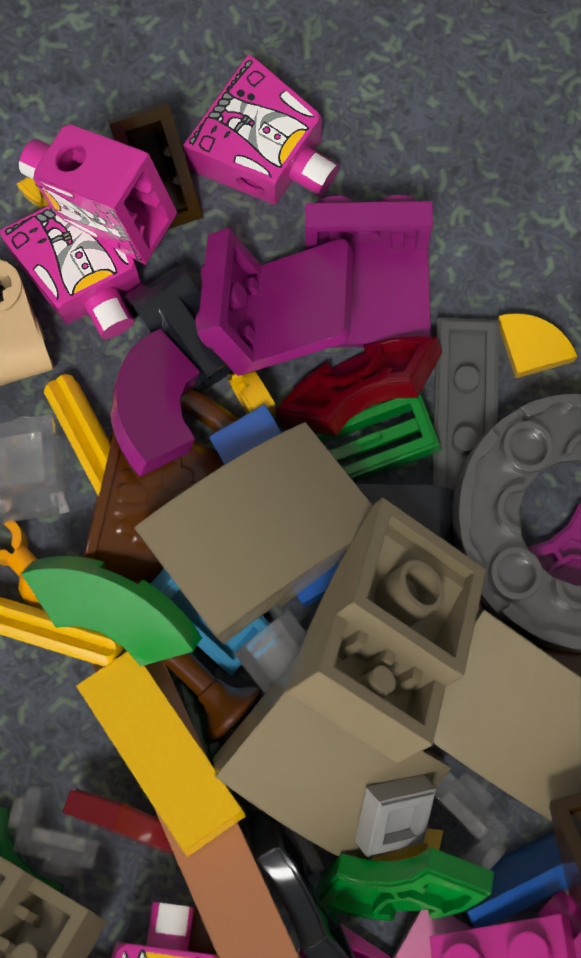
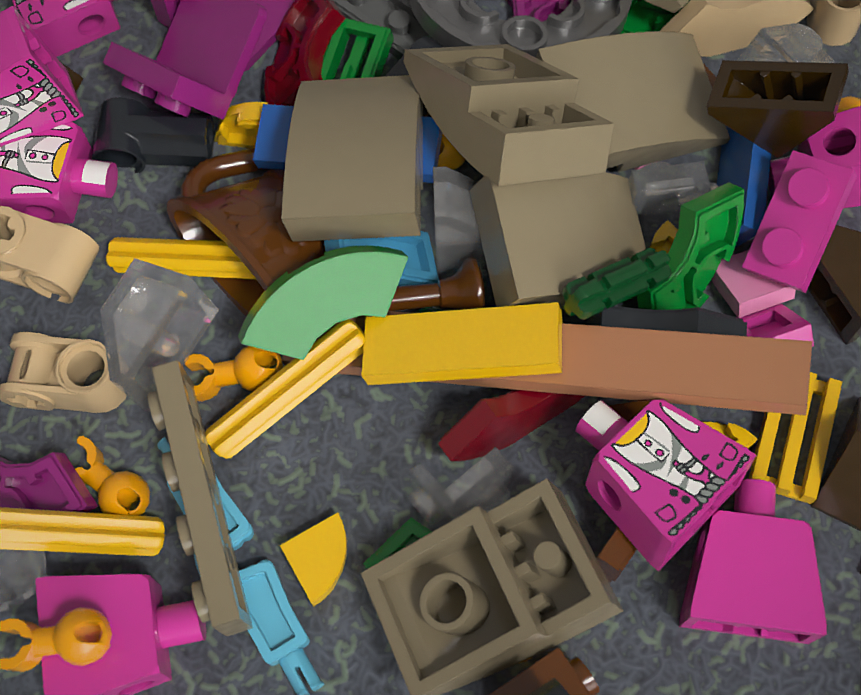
camera: 55 degrees left, 10 degrees down
(148, 405) = (194, 174): magenta tile -> none
(307, 845) = (616, 283): none -> dark green axle
(395, 815) = (635, 222): light grey tile -> none

